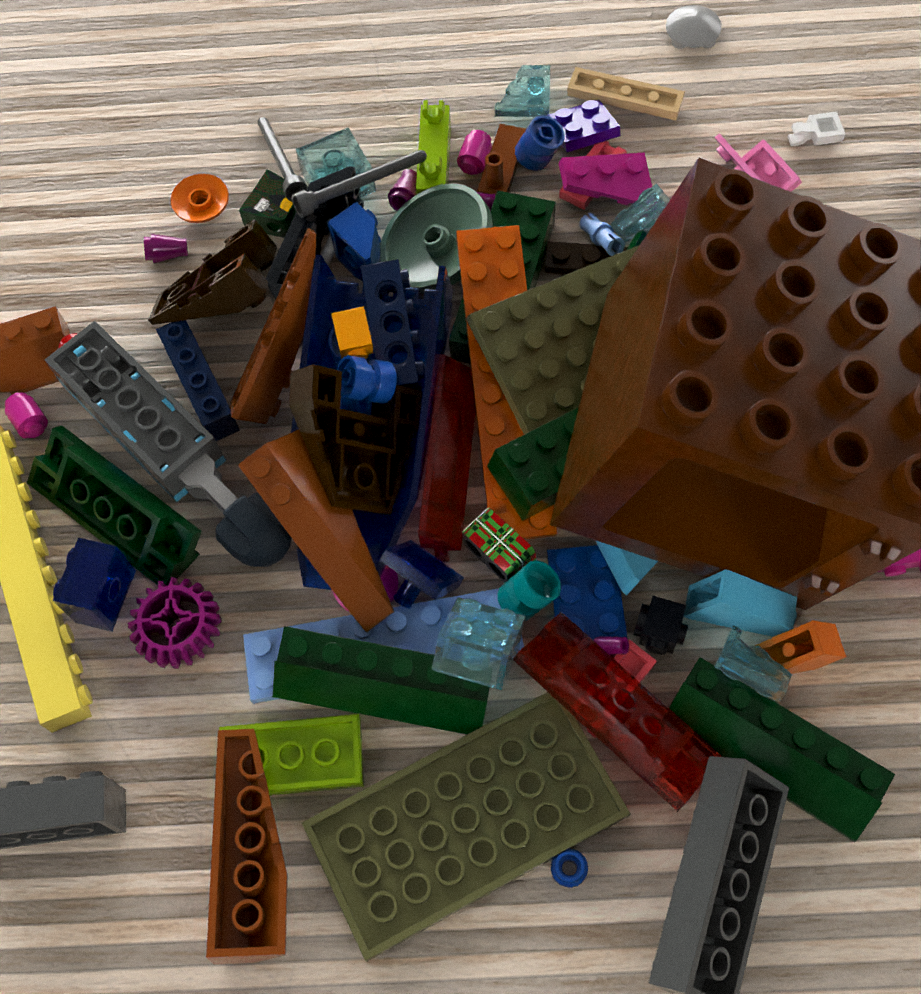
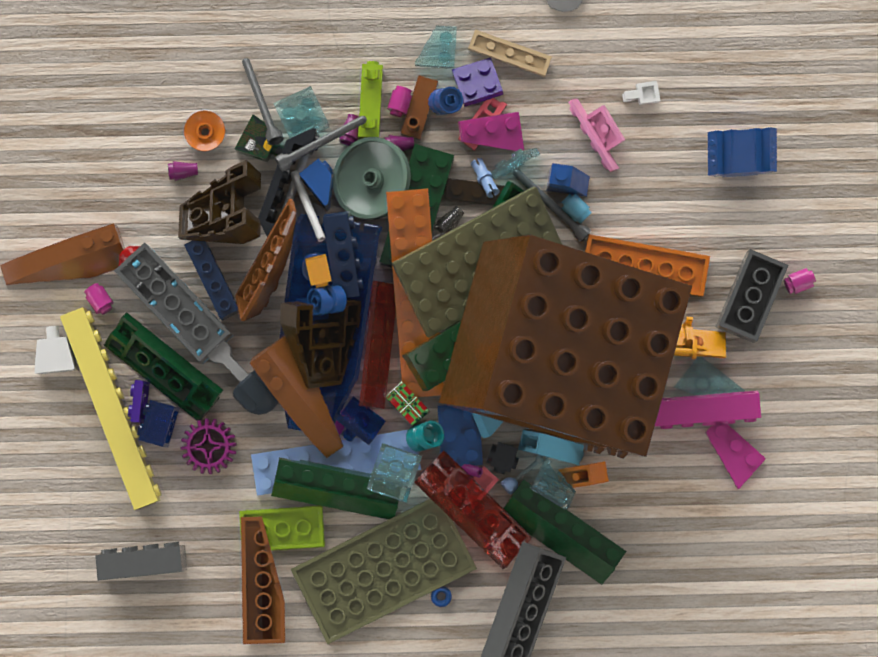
camera: 10 degrees left, 20 degrees up
(63, 536) = (140, 395): none -> dark purple plate
(342, 270) = (308, 206): none -> white piece
(677, 669) = (511, 484): none -> hinge

